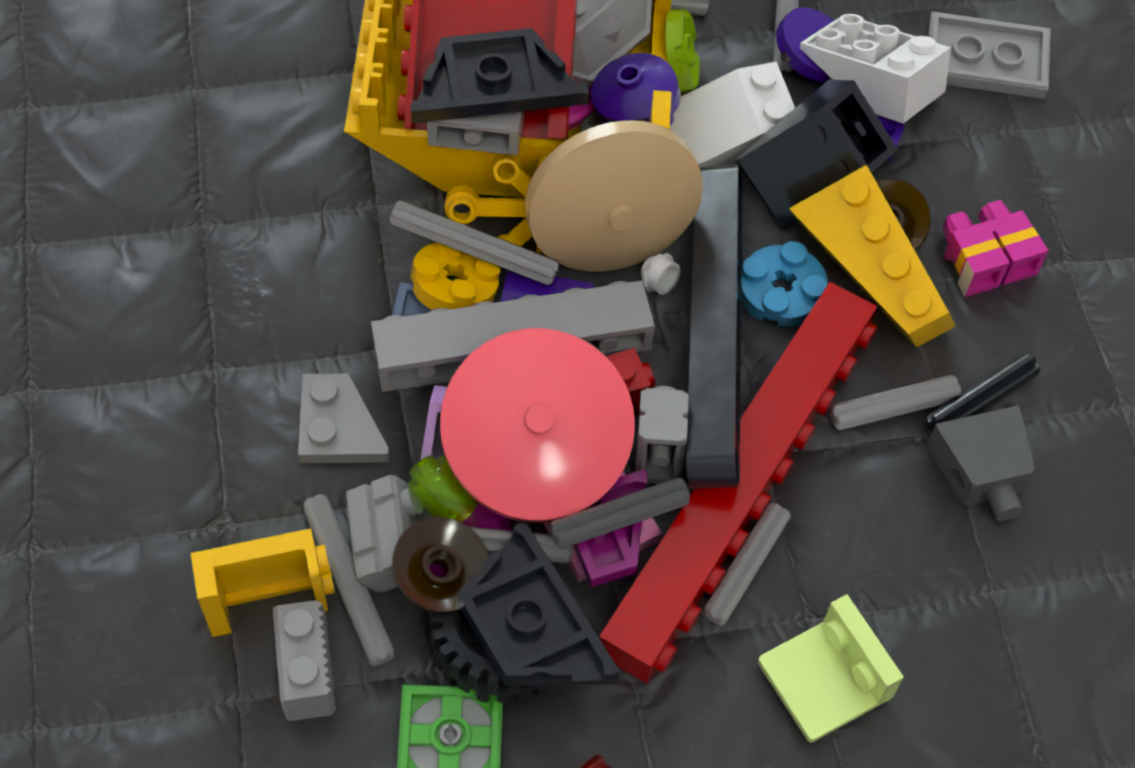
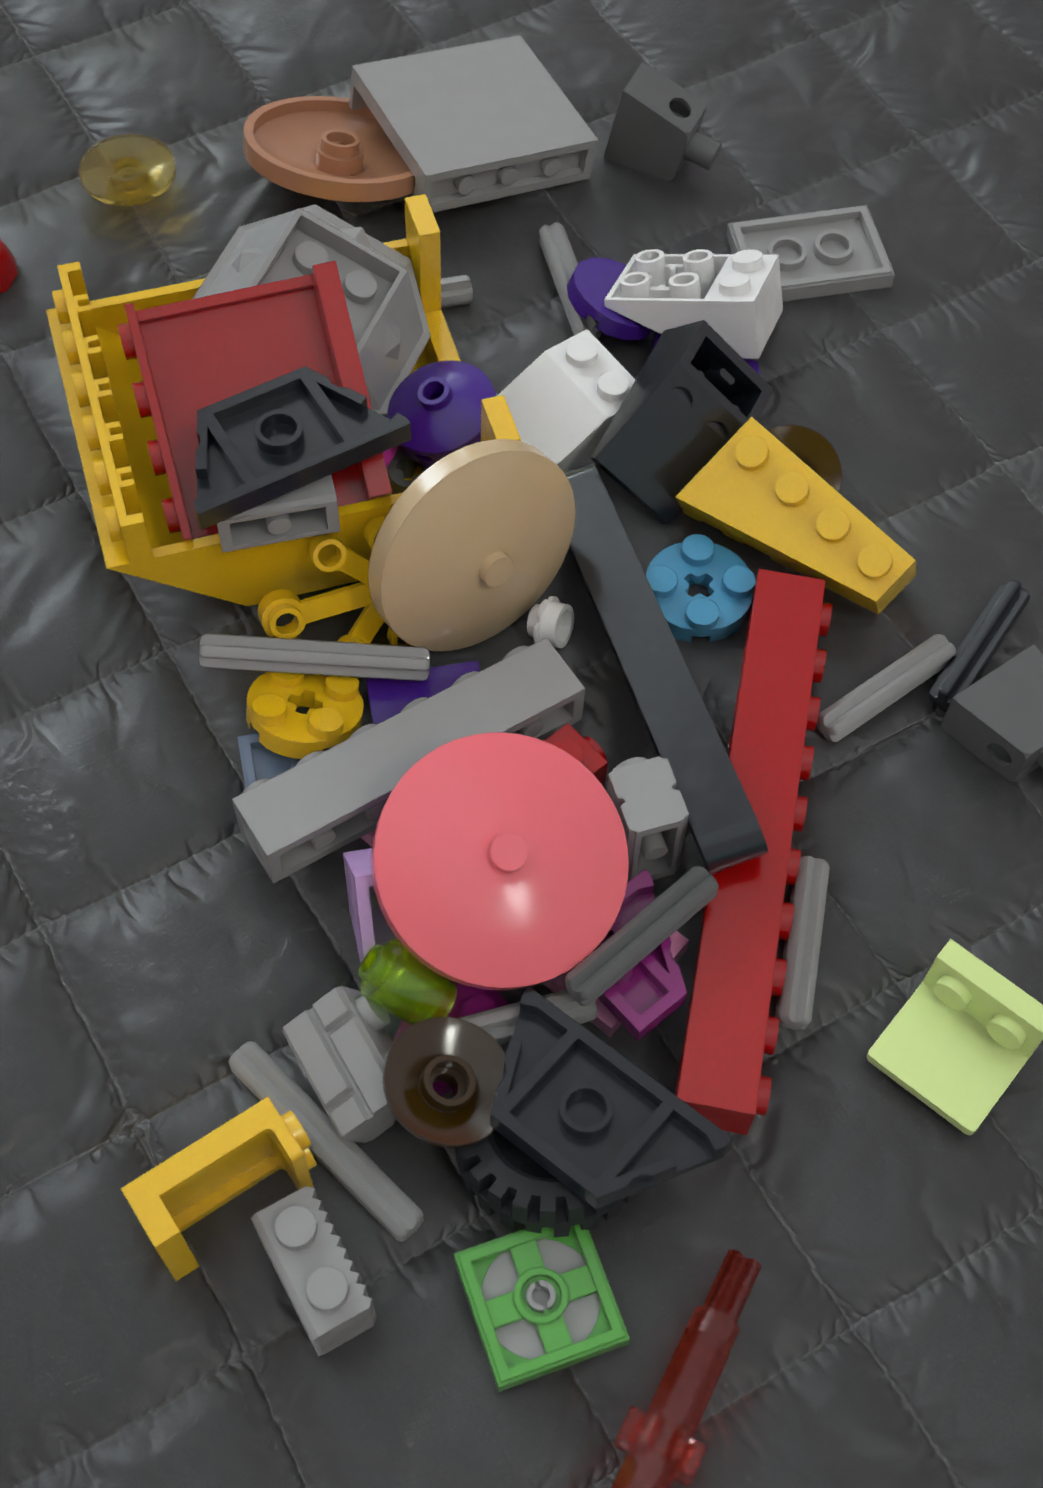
camera: 20 degrees left, 0 degrees up
(337, 423) = (229, 942): light grey wing -> none
(680, 48) = (466, 338): lime tile -> none
(994, 251) = (920, 474): dark pink hips -> none

